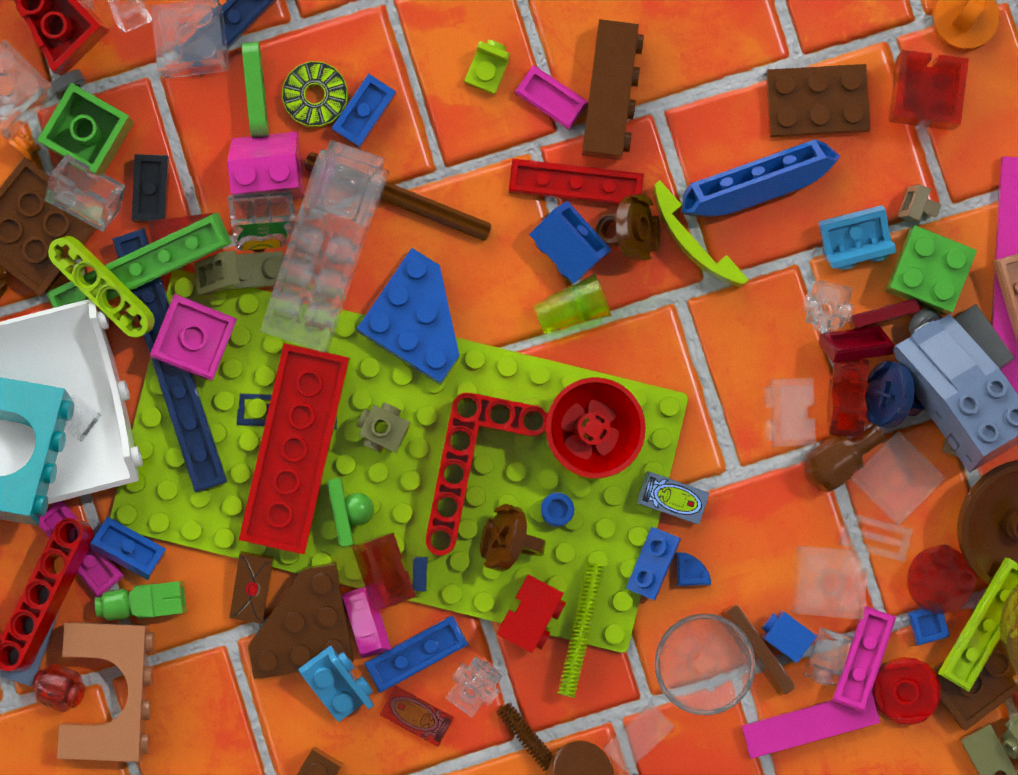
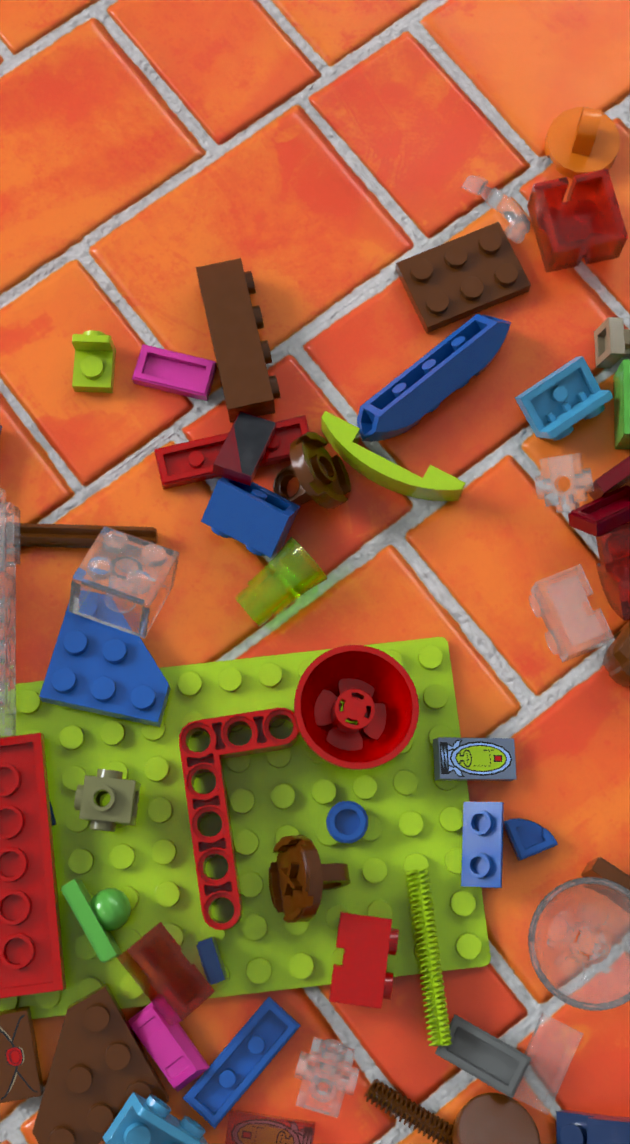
camera: 20 degrees left, 10 degrees down
(452, 262) = (123, 582): none -> clear brick
(584, 187) = (244, 448): none -> tile
(595, 716) = (485, 1056): none -> dark grey tile
(879, 55) = (497, 200): none -> clear arm

